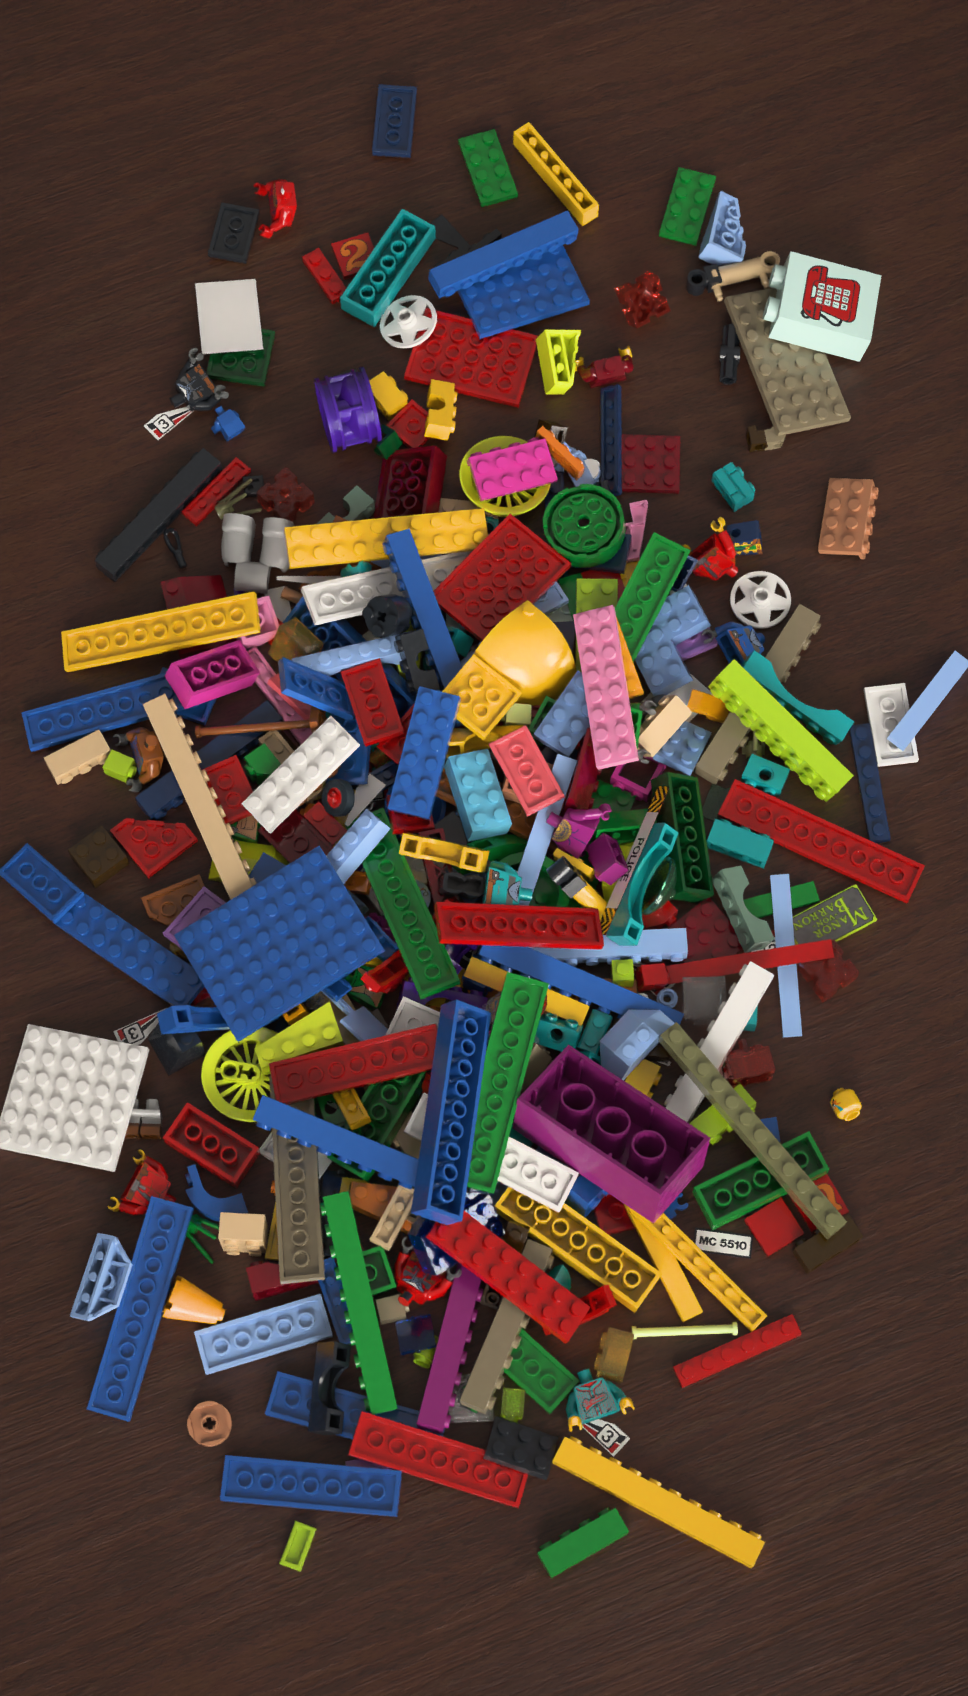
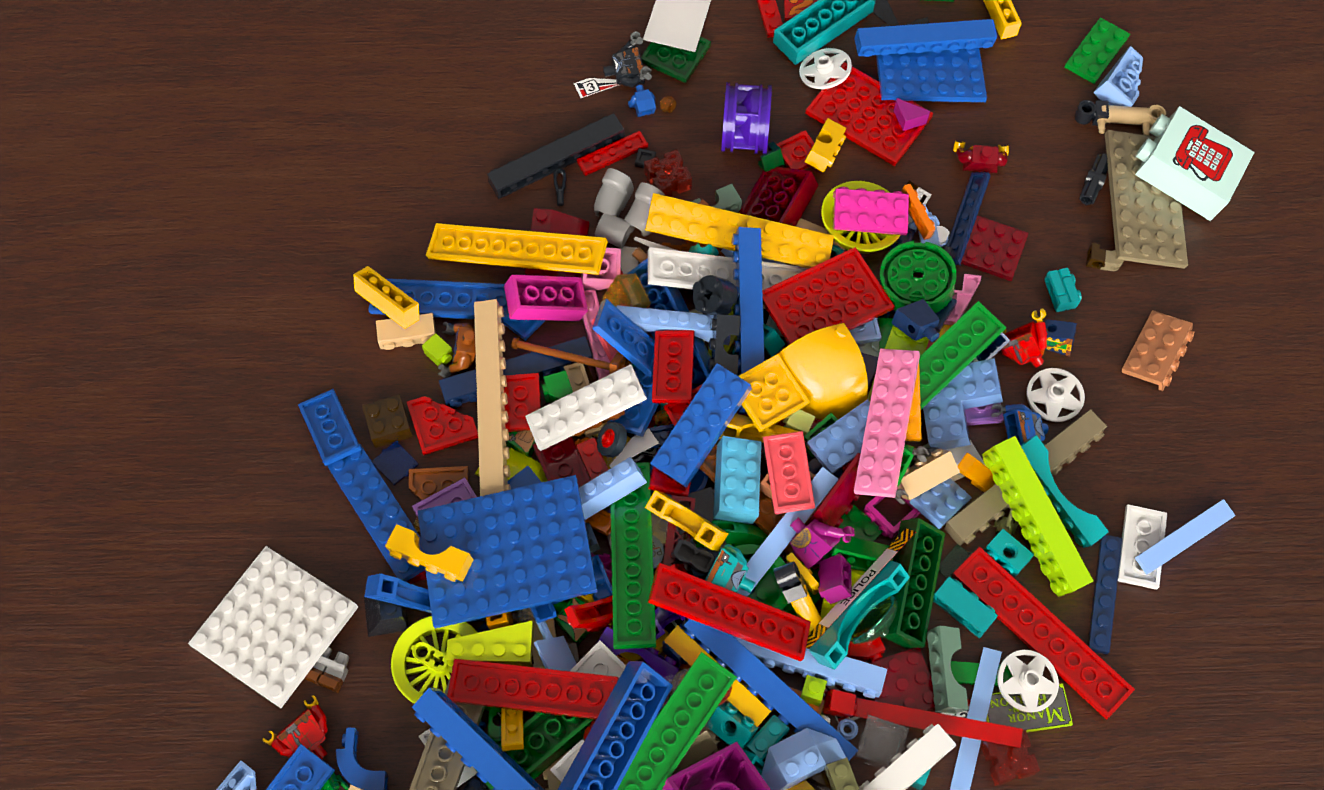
camera: 20 degrees right, 5 degrees down
(46, 729) = (386, 297): none -> yellow brick
(122, 896) = (395, 463): none -> clear blue piece
(138, 1031) = (353, 587): sticker -> none
(211, 1145) = (377, 716): red brick -> none
(226, 506) = (626, 160): olive plant -> none
(232, 973) = (452, 562): none -> yellow arch
(255, 417) = (668, 104): none -> clear orange plate
(387, 395) = (784, 120): yellow brick -> none
(516, 347) = (910, 115): none -> magenta slope
(557, 359) = (942, 135): neon yellow wedge -> none
(600, 572) = (917, 321): none -> dark blue torso
(642, 299) = (1033, 110): clear red brick -> none
(822, 892) = (1028, 681): none -> white wheel

